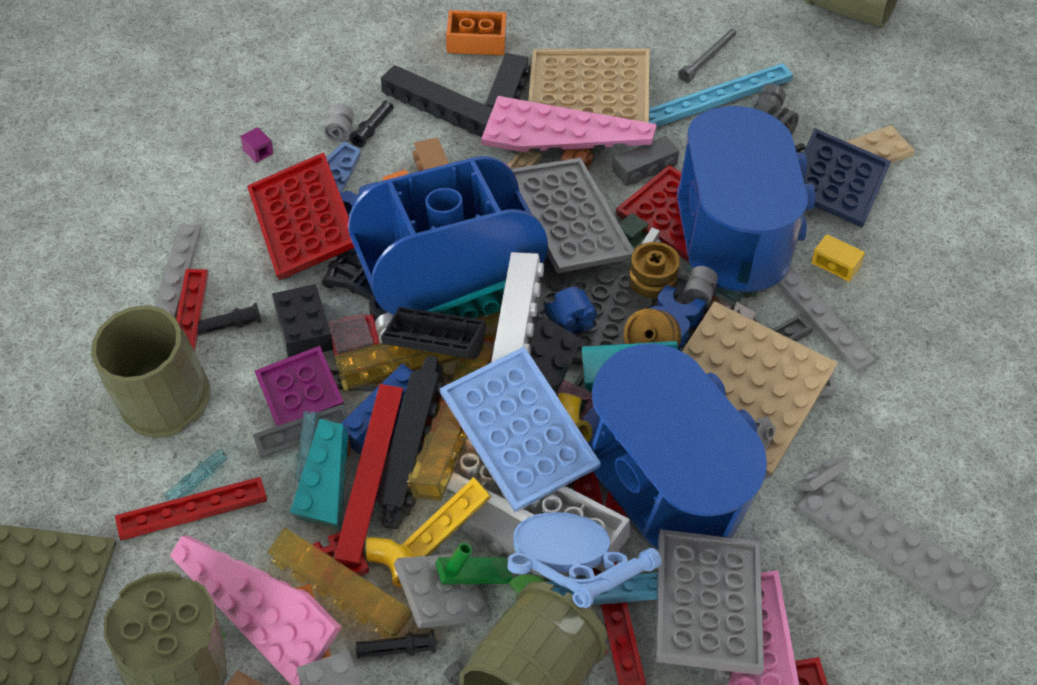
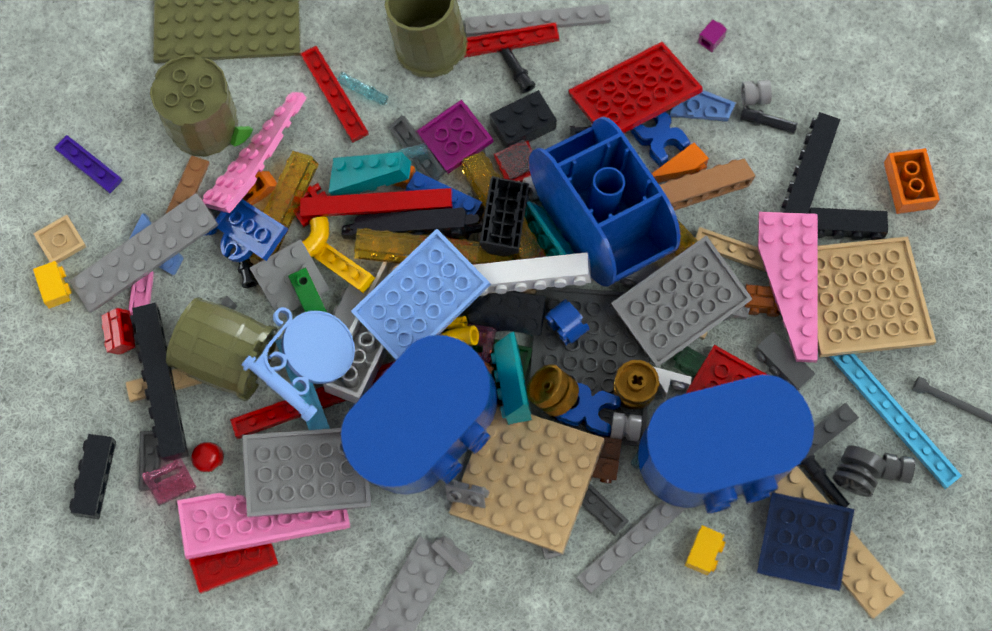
camera: 80 degrees right, 20 degrees up
(372, 614) = (249, 232): none -> blue plate

